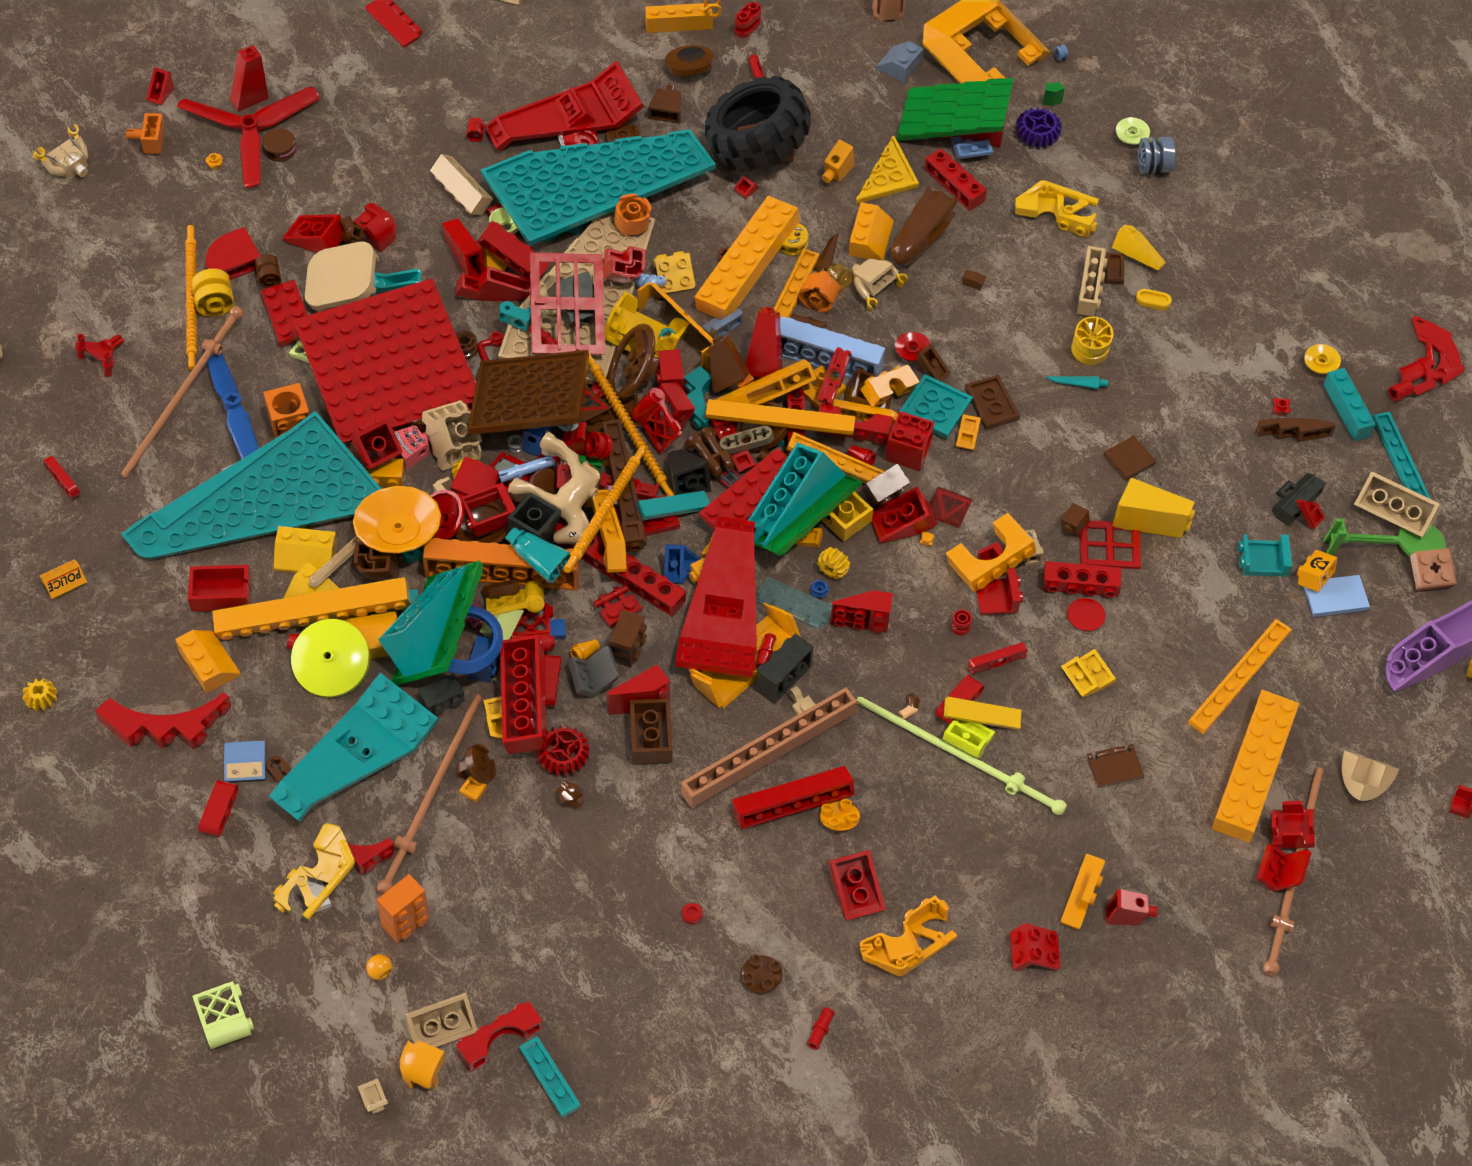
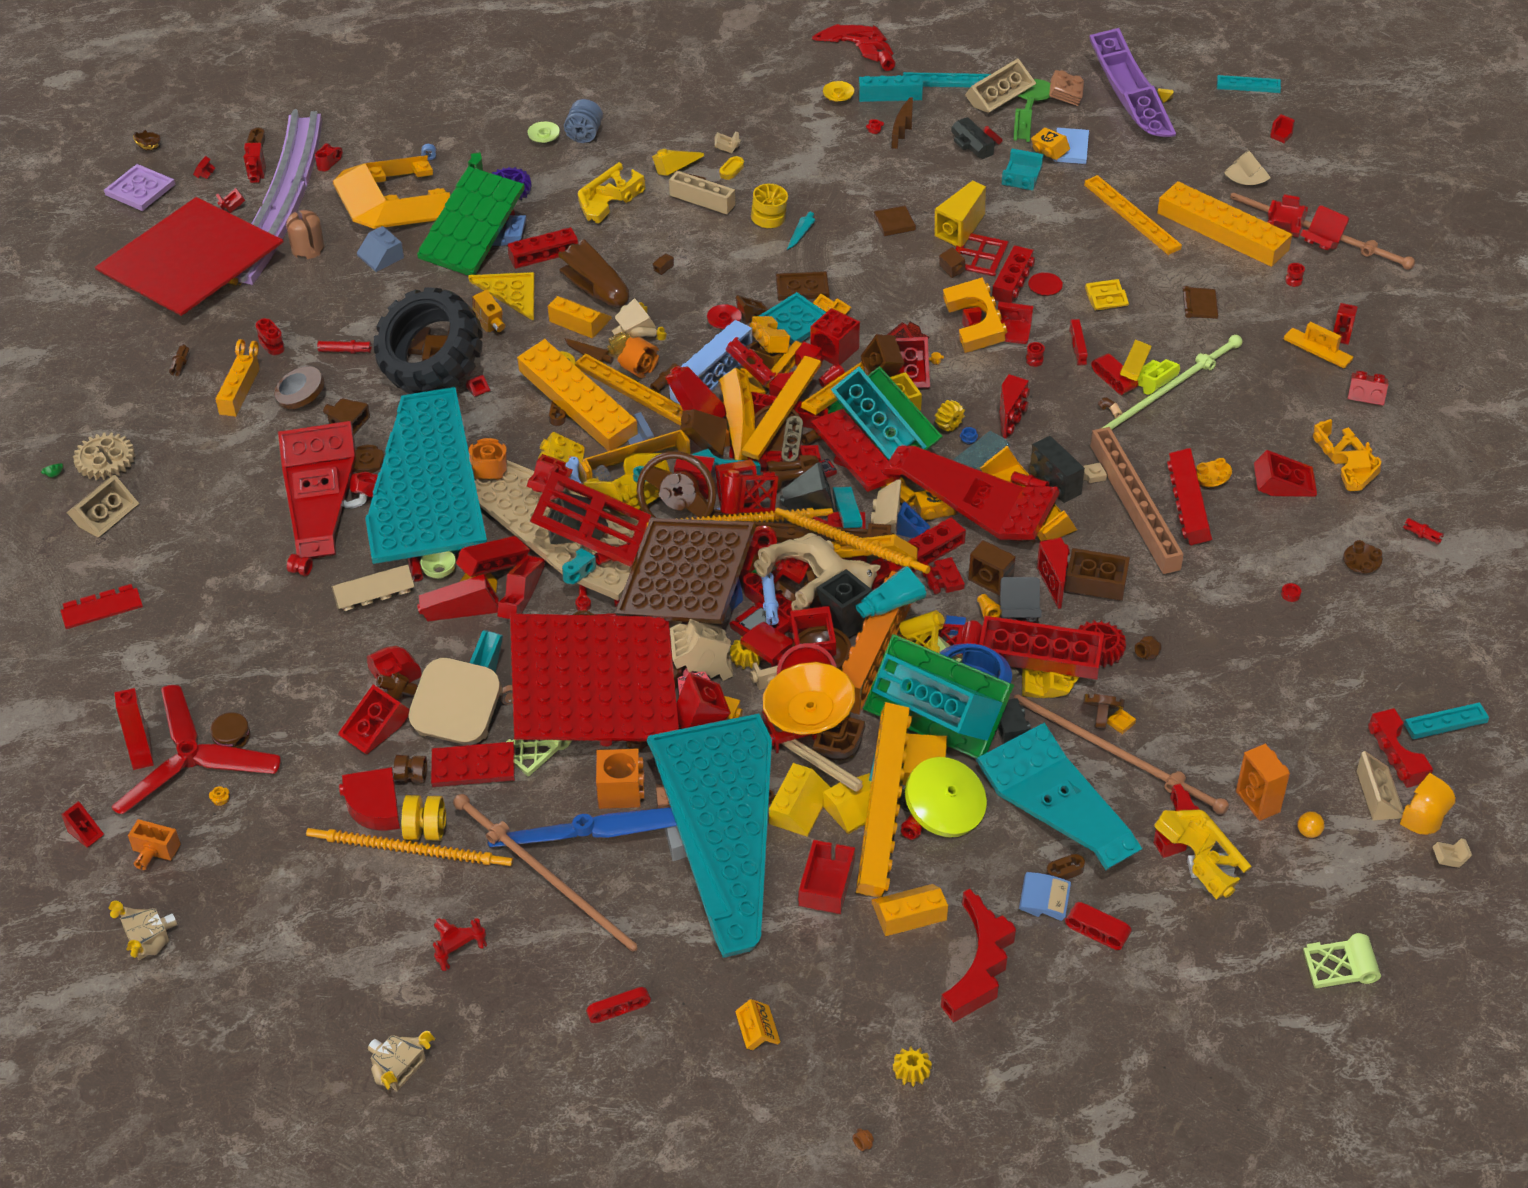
camera: 70 degrees left, 10 degrees down
(691, 536) = (887, 506): none -> tan slope
(1188, 283) = (727, 143): none -> tan bracket
(1197, 854) = (1295, 274): none -> red wheel

